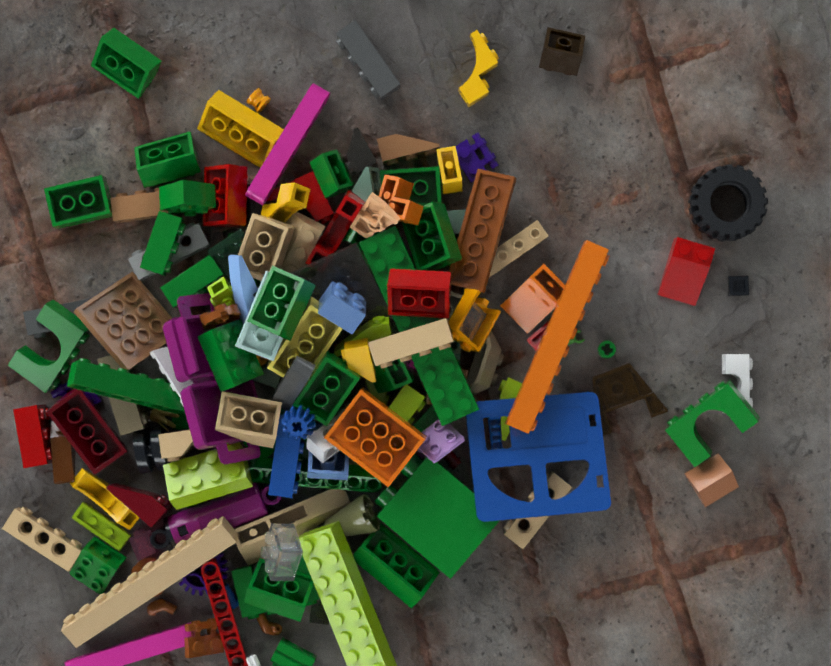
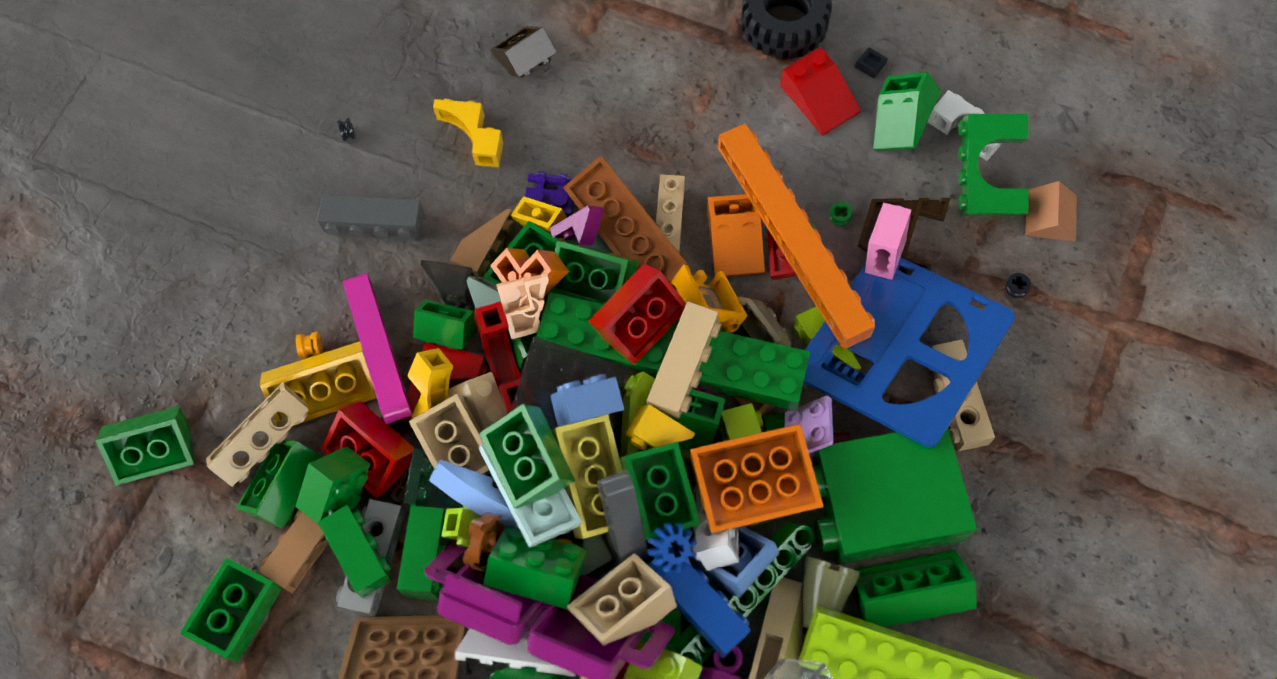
camera: 50 degrees left, 20 degrees down
(181, 124) = (280, 400): none -> tan brick
(458, 204) = (581, 225): none -> magenta slope
(598, 398) = (887, 241): none -> bright pink piece
(636, 492) = (1023, 281): none -> black bush
(709, 337) = (904, 110): none -> slope

